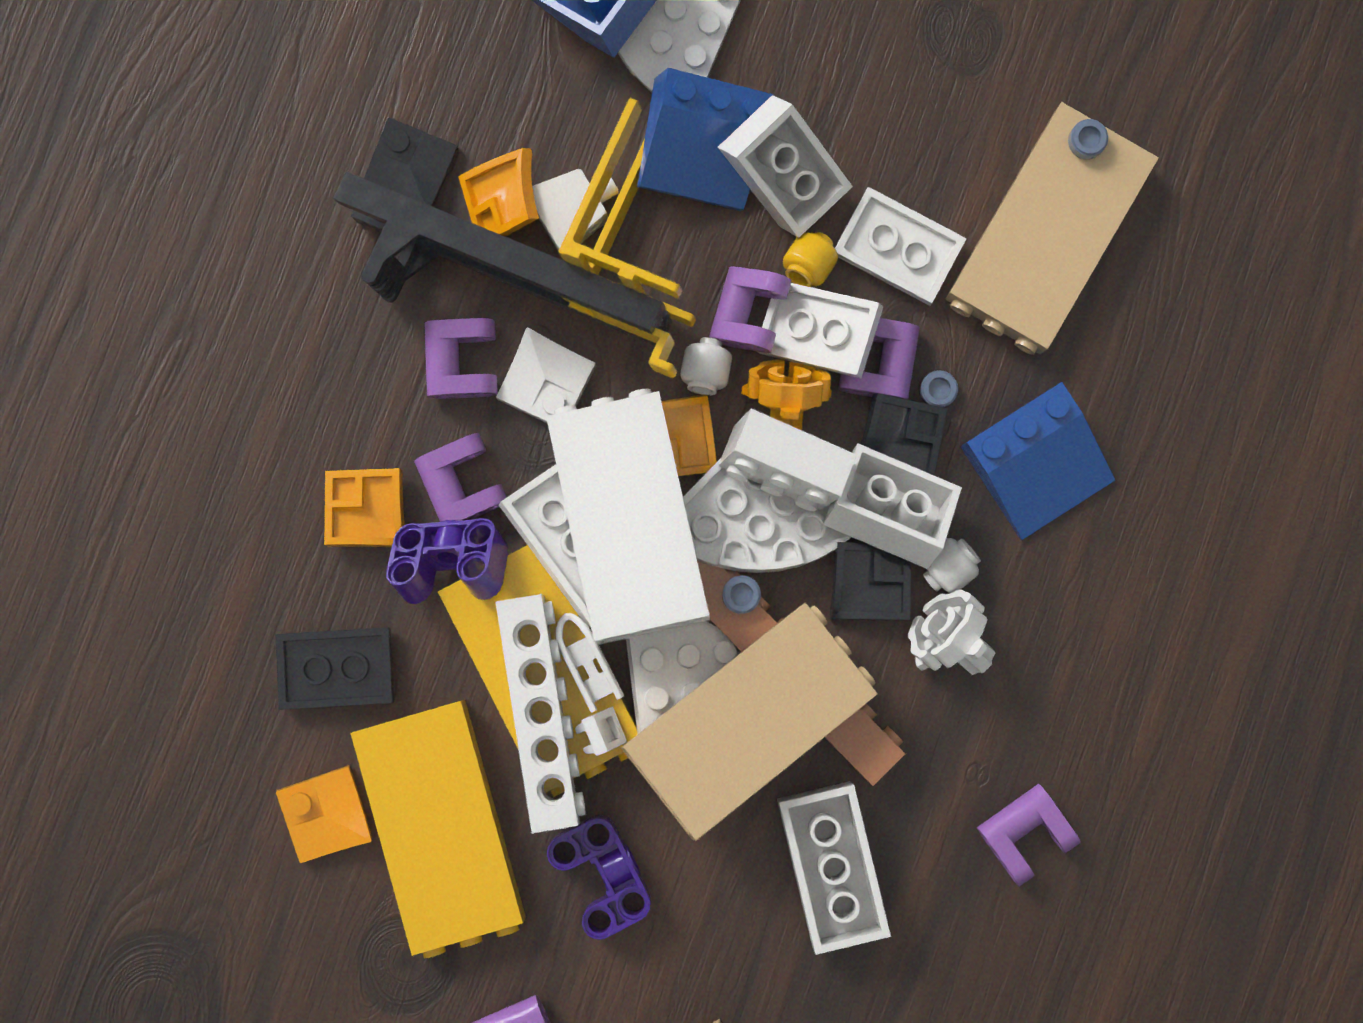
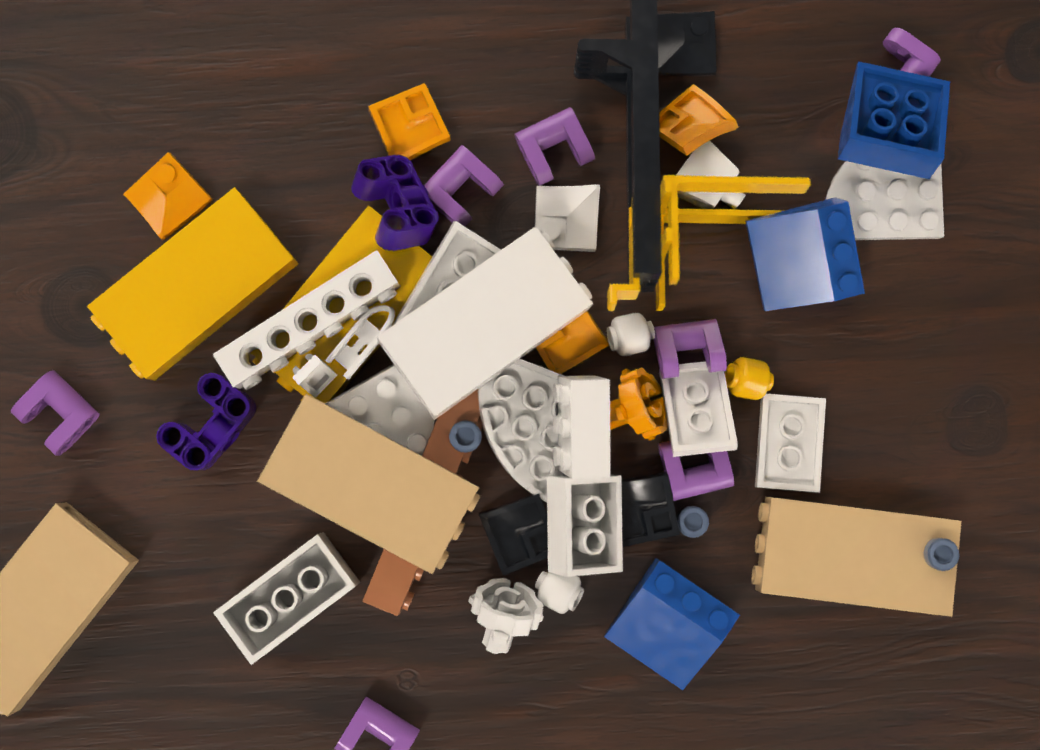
camera: 65 degrees right, 0 degrees up
(334, 668) = (279, 155): black plate -> none
(785, 166) = (812, 326): white brick -> none

